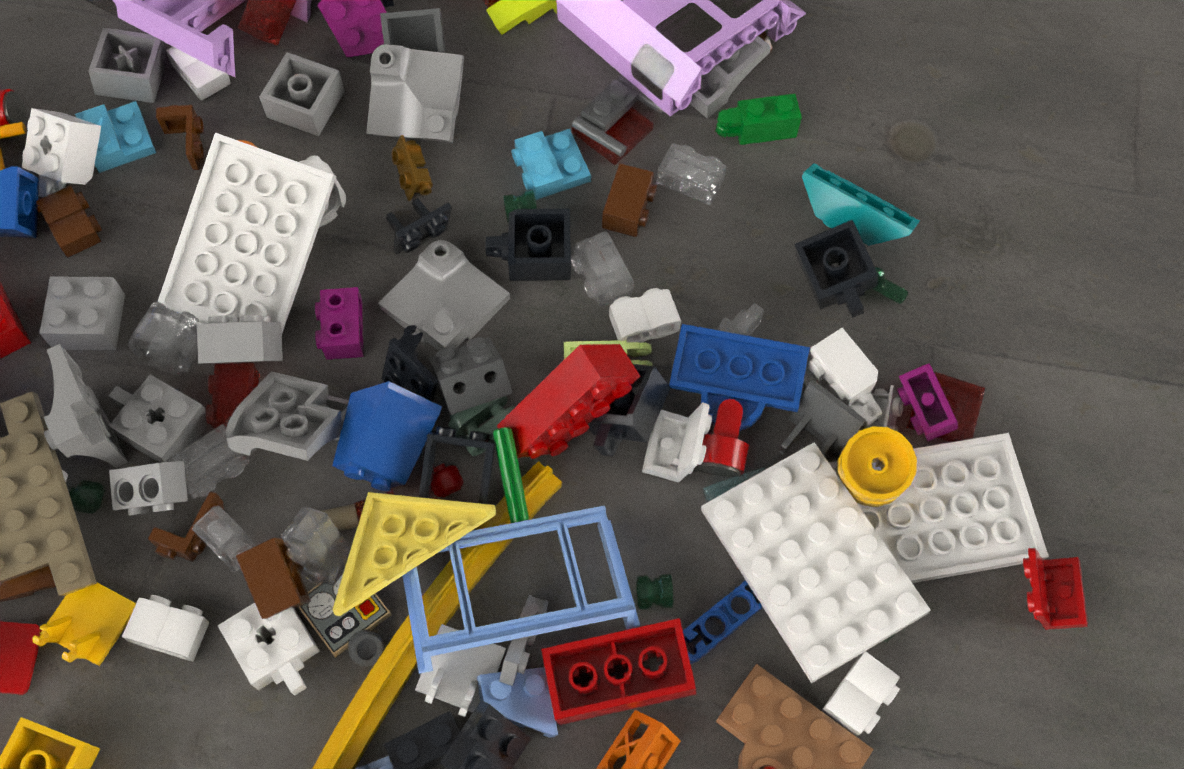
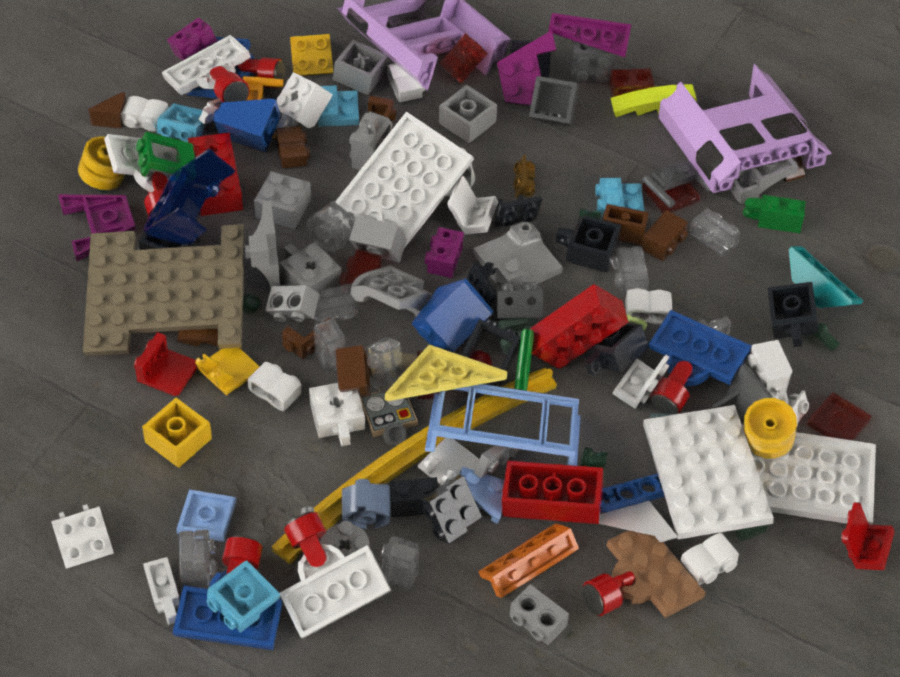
camera: 20 degrees right, 15 degrees down
(52, 64) = (311, 55): none -> yellow plate
(175, 178) = (368, 137): none -> light grey hinge
(355, 246) = (470, 212): none -> white bracket
(414, 94) = (542, 132): light grey slope -> none
(580, 195) = (632, 222): none -> reddish brown brick
(749, 665) = (641, 519): none -> white sticker
(928, 402) = (822, 404): magenta brick -> none

